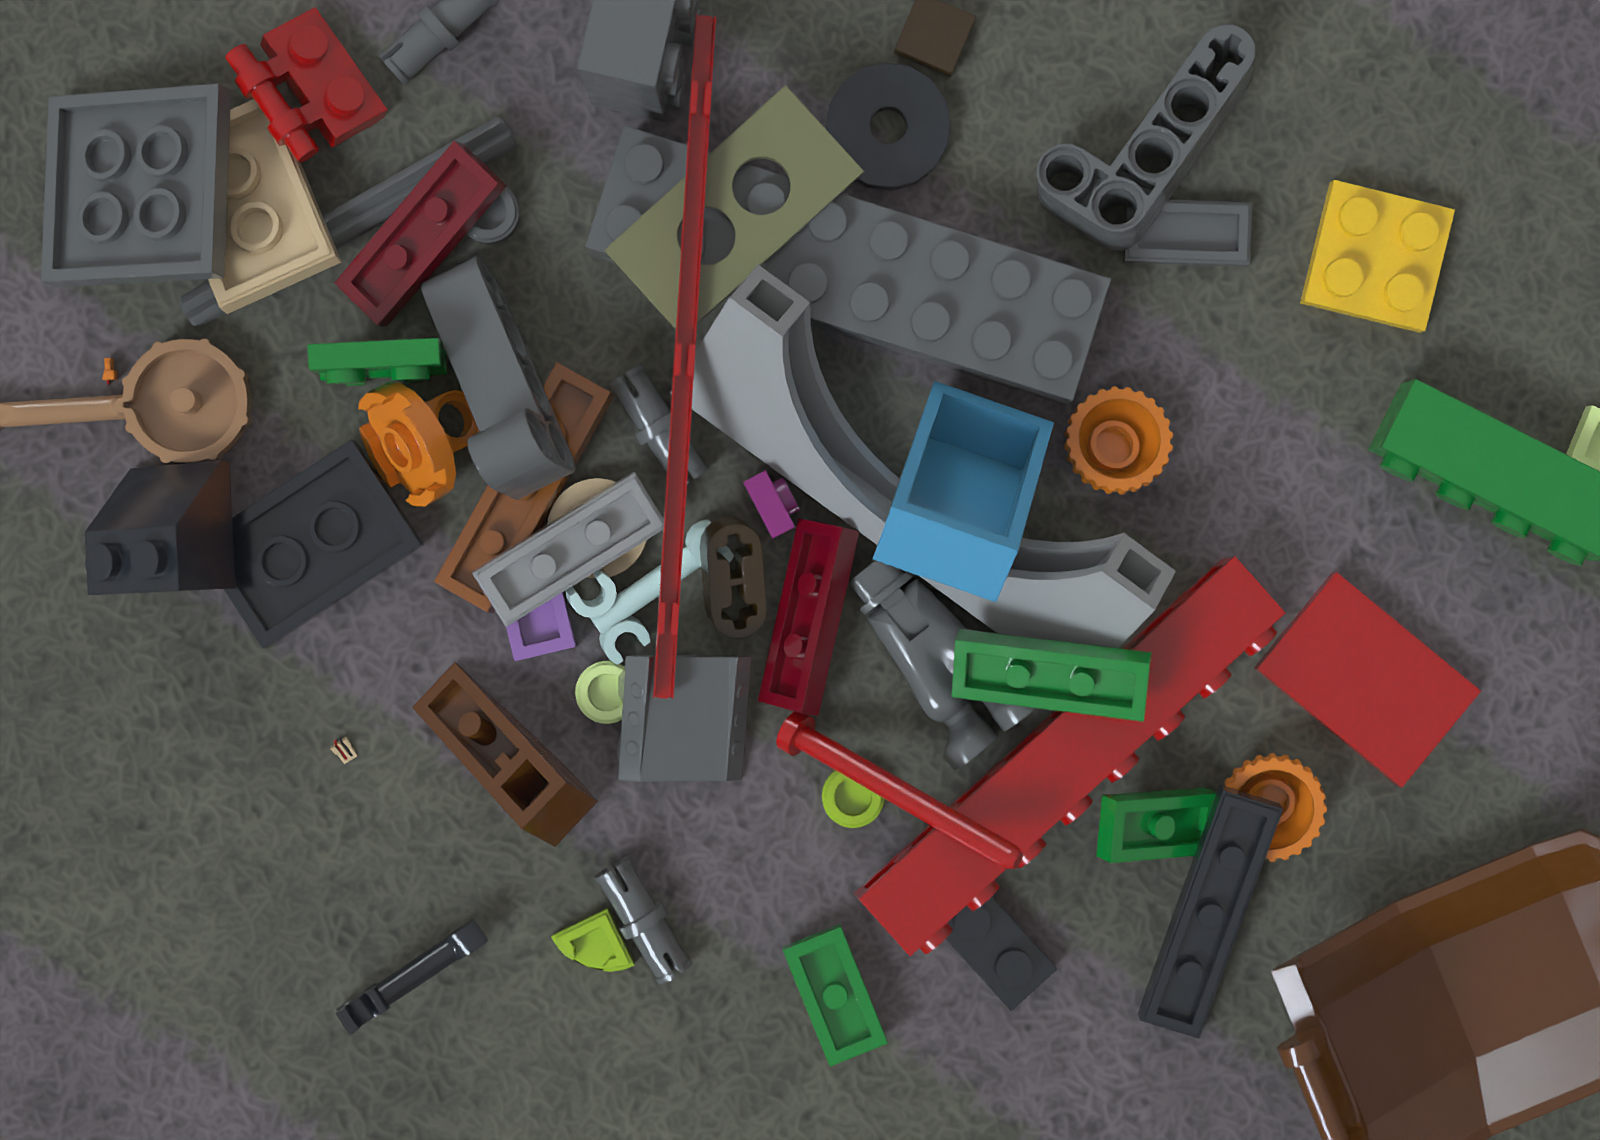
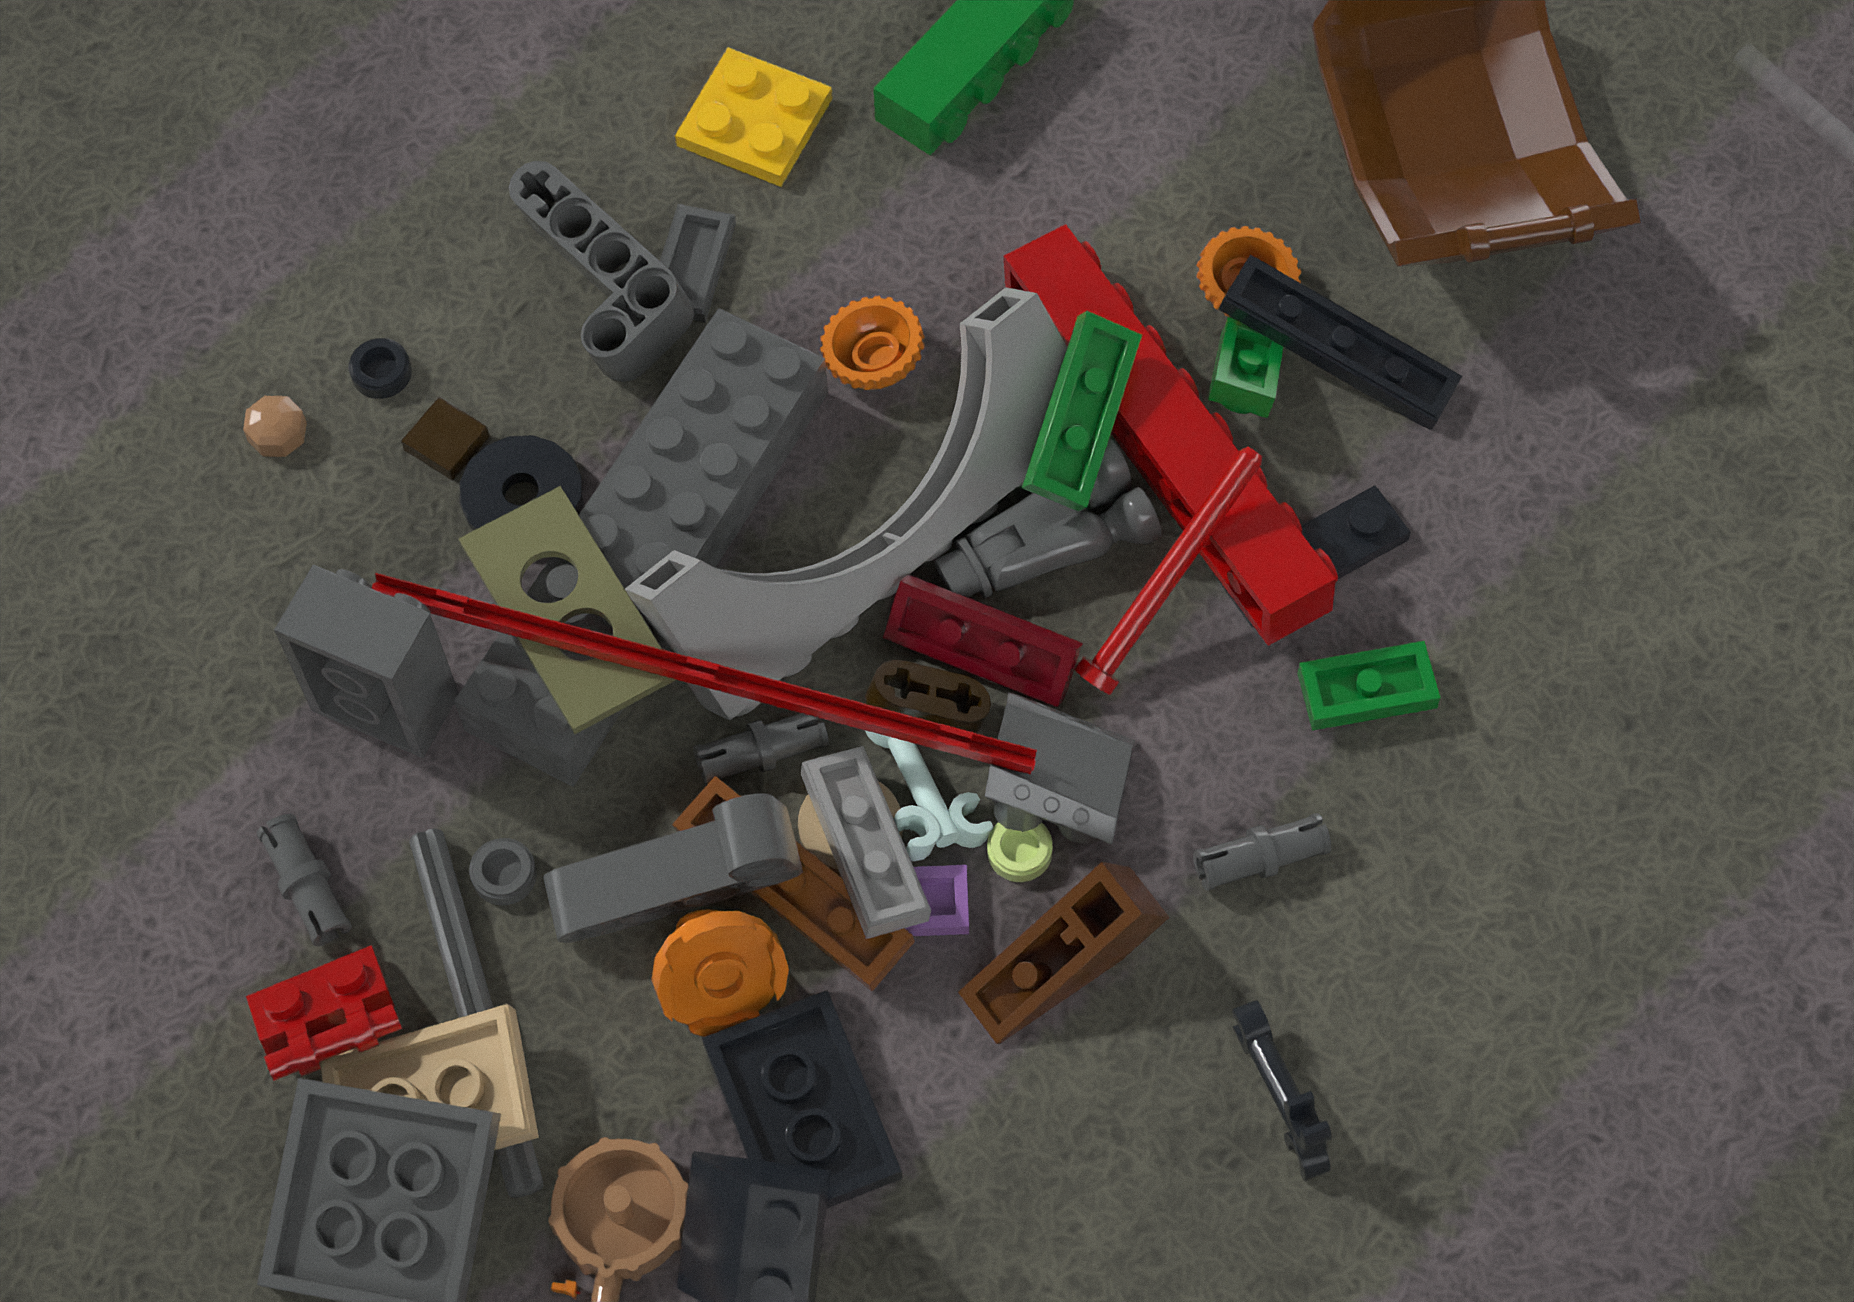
camera: 75 degrees left, 25 degrees down
(343, 749) = (1027, 1123): tan piece -> none
(395, 359) = (625, 984): green plate -> none
(420, 234) = (508, 929): dark red plate -> none
(595, 943) = (1278, 906): lime tile -> none
(773, 502) = (860, 652): magenta plate -> none
(849, 802) = (1171, 640): lime tile -> none
(965, 492) = (890, 456): dark azure piece -> none
(1367, 679) = (1144, 186): red tile -> none

